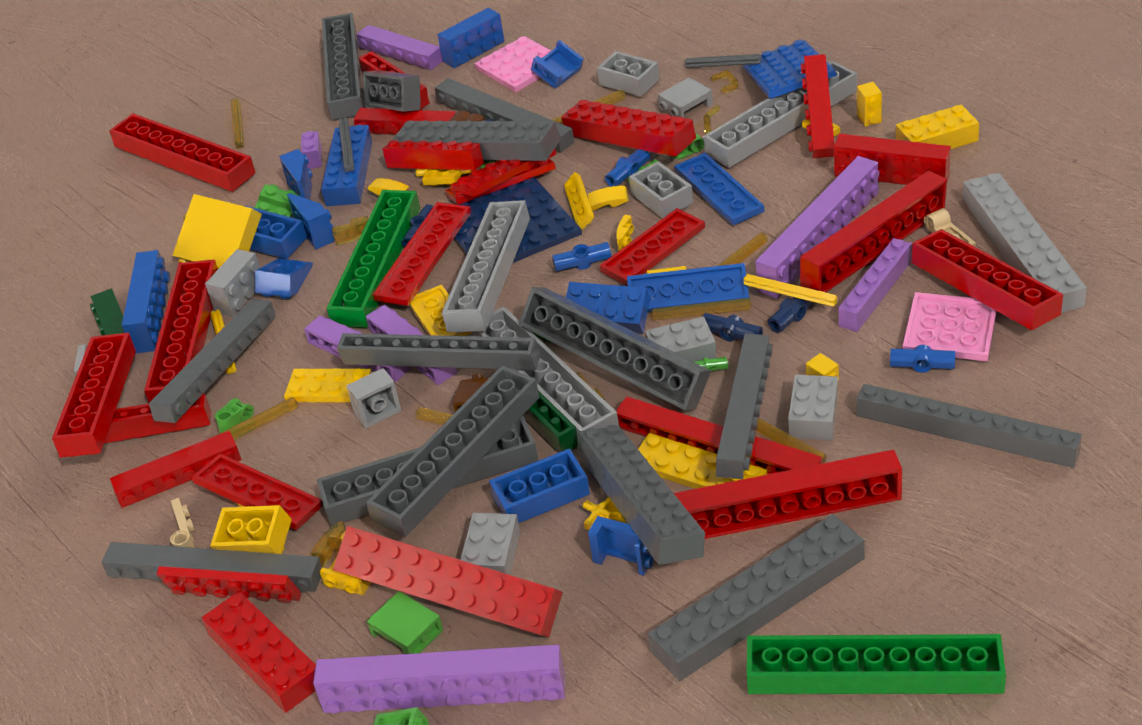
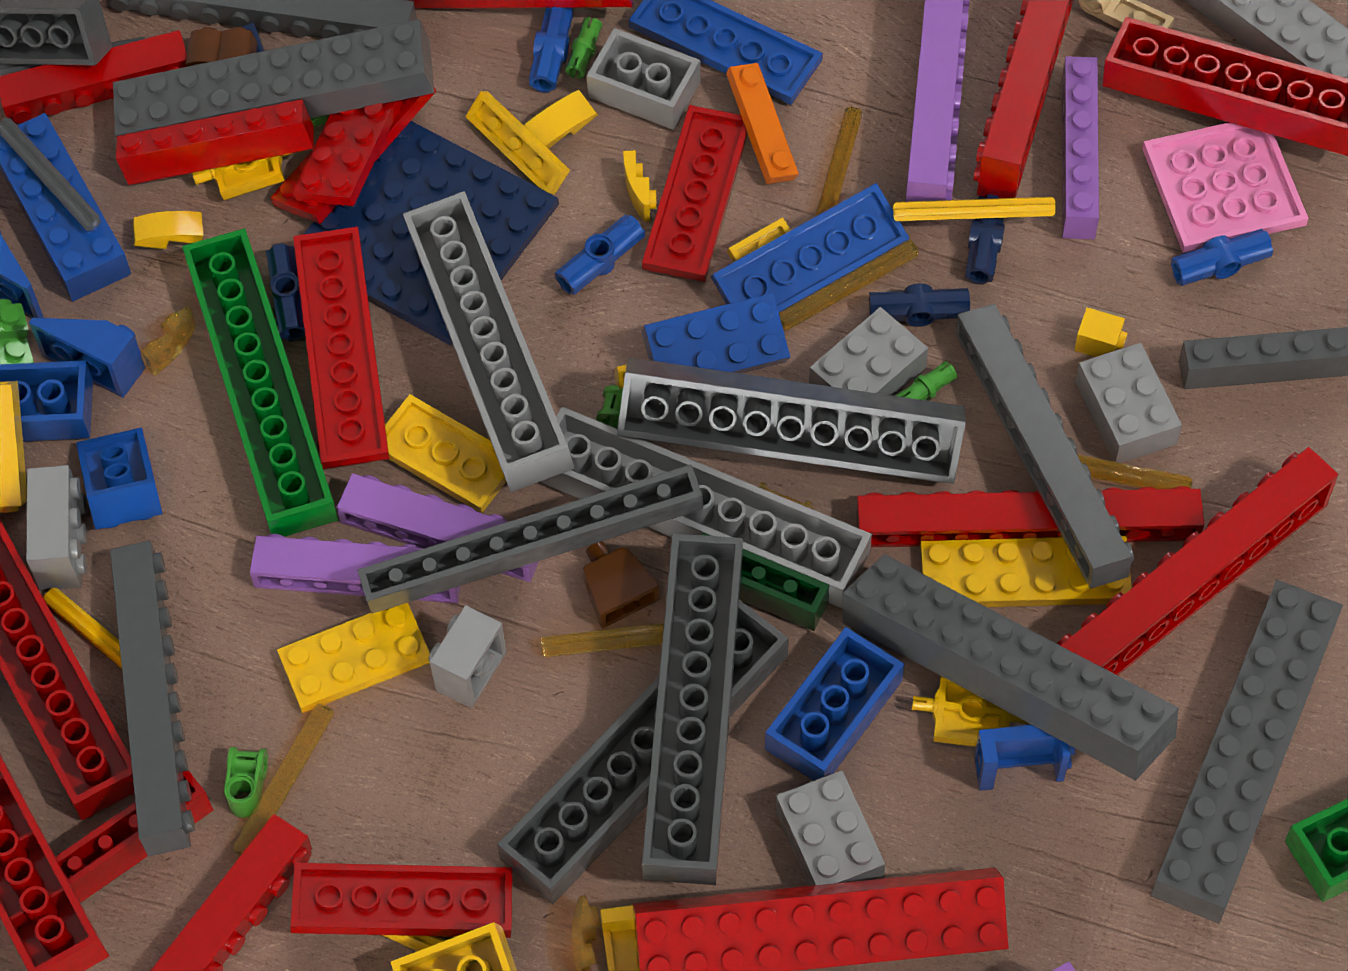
camera: 35 degrees left, 20 degrees up
(707, 225) = (762, 123): none -> orange plate

